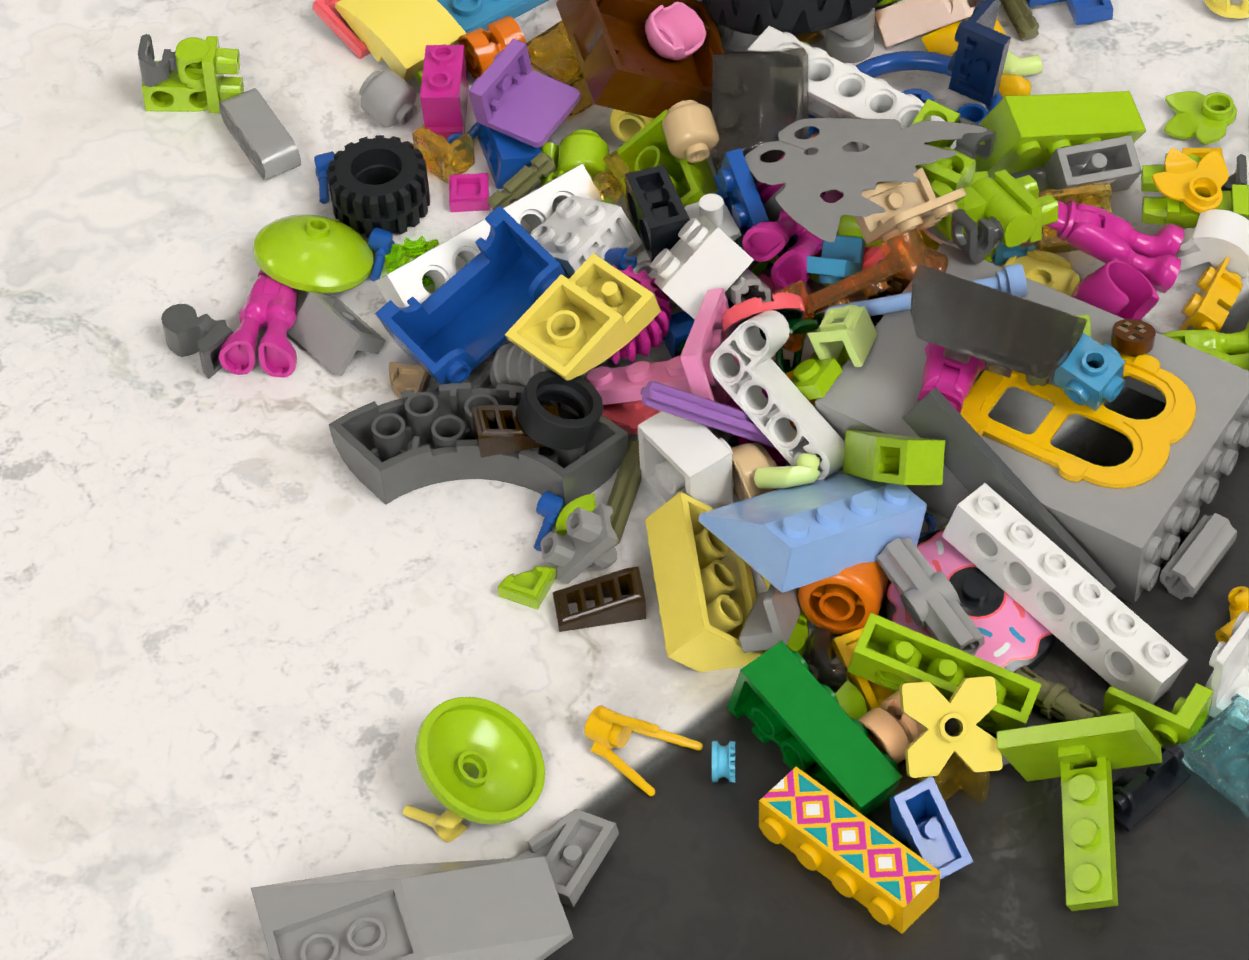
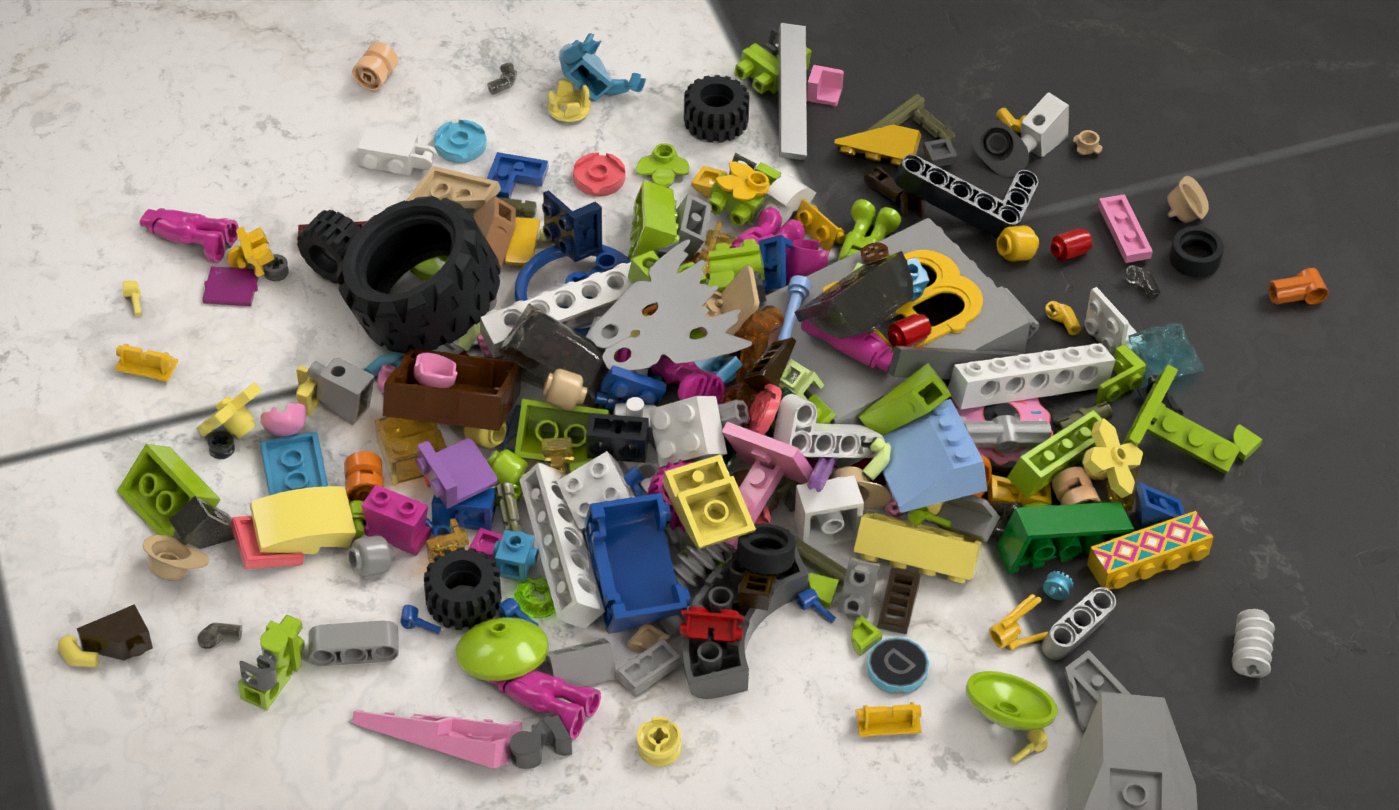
camera: 70 degrees left, 0 degrees up
(175, 260) = (464, 738): none -> bright pink wedge
(219, 26) = (218, 632): none -> clear smoke arm
(254, 443) = (670, 745): none -> light yellow wheel
(352, 389) = (649, 667): none -> light grey plate
(399, 651) = (888, 720): none -> yellow hinge
(428, 417) = (700, 621): none -> red hinge
(453, 208) = (515, 555): none -> dark azure brick
(497, 635) = (897, 665): none -> black tile
(650, 786) = (1085, 613): none -> light grey beam
(739, 567) = (918, 515): none -> lime hand
(830, 293) = (770, 365): none -> dark brown slope
(1003, 411) = (909, 331): none -> red brick
(1067, 259) = (774, 260): none -> blue hinge
(1139, 66) = (599, 174): none -> coral tile
(1143, 912) = (1247, 441): none -> lime tile

